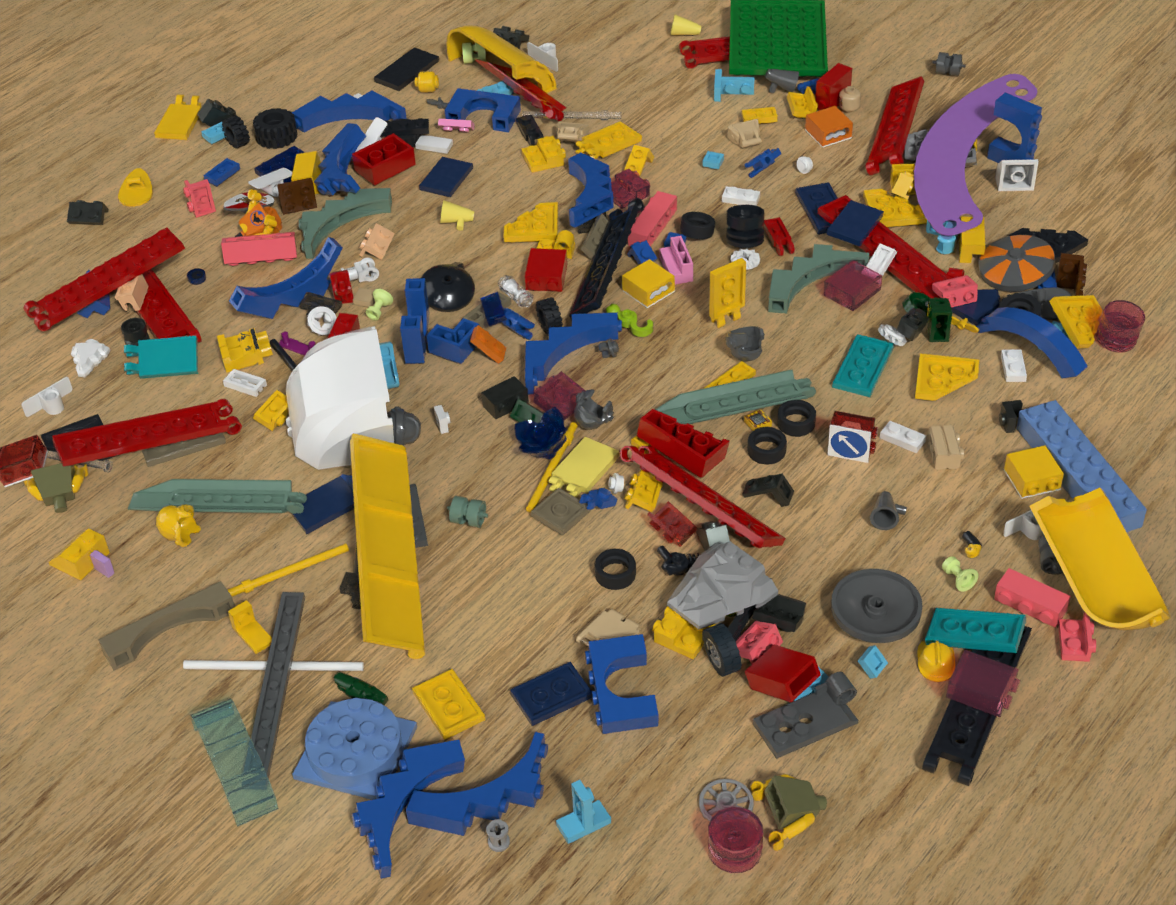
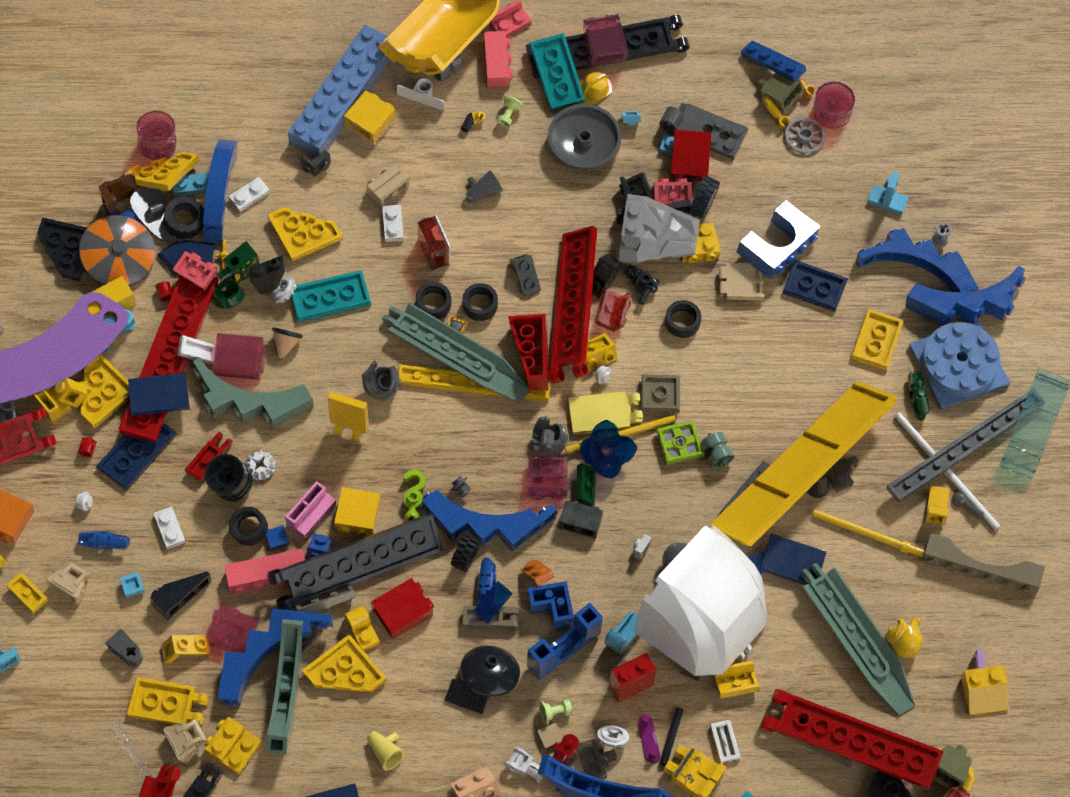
camera: 135 degrees left, 20 degrees up
(238, 655) = (960, 499): none -> dark grey bar
(504, 496) = (680, 442): none -> lime piece
(509, 286) = (447, 621): clear piece -> none
(547, 183) = (286, 687): none -> sand green arch
(601, 498) = (628, 374): blue plate -> none
(667, 138) = (123, 646): none -> dark grey piece
(682, 173) = (176, 594): none -> black slope
(837, 819) = (773, 60): none -> blue plate
(846, 316) = (285, 340): none -> light nougat hat
(849, 183) = (87, 446): none -> red hose

